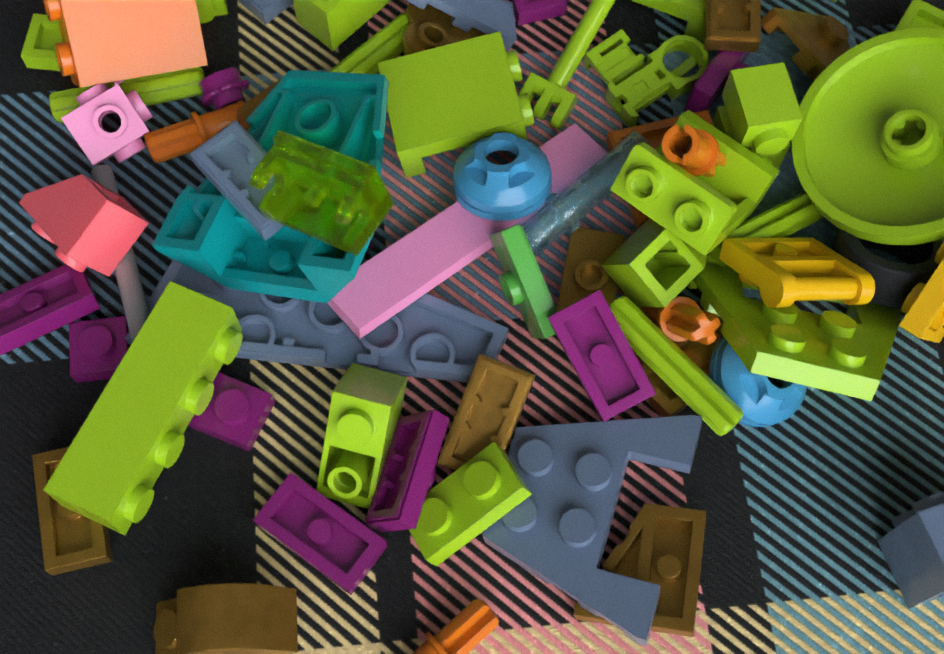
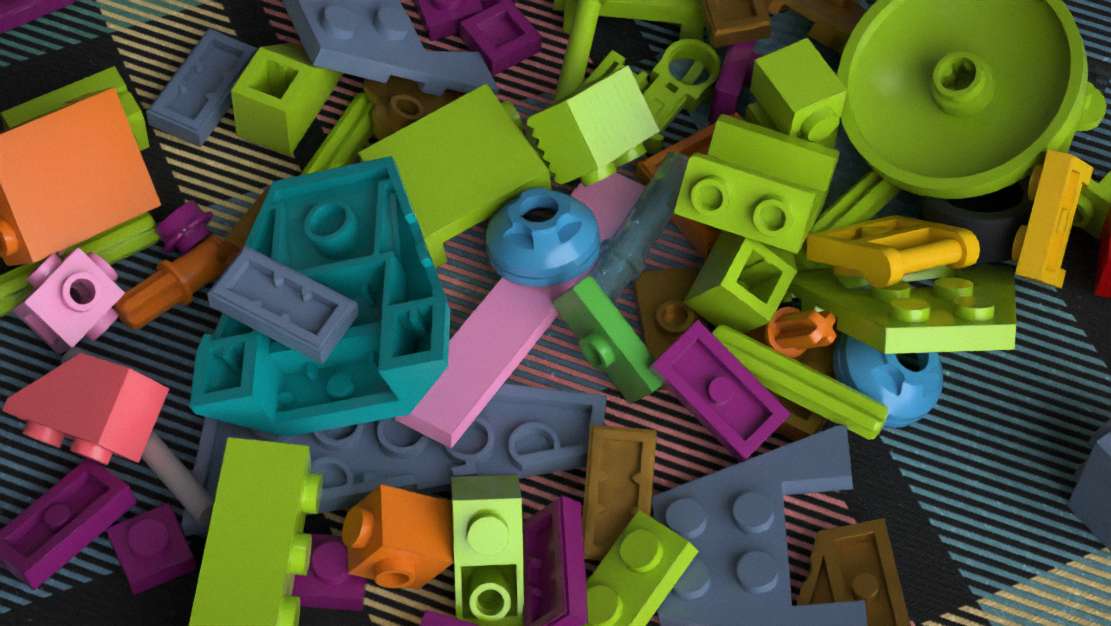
camera: 20 degrees left, 10 degrees down
(286, 404) = (399, 537): none -> orange brick
(321, 192) = (382, 288): clear neon green hinge -> none
(577, 93) = (594, 128): none -> lime brick
(693, 150) = (749, 147): orange axle -> none

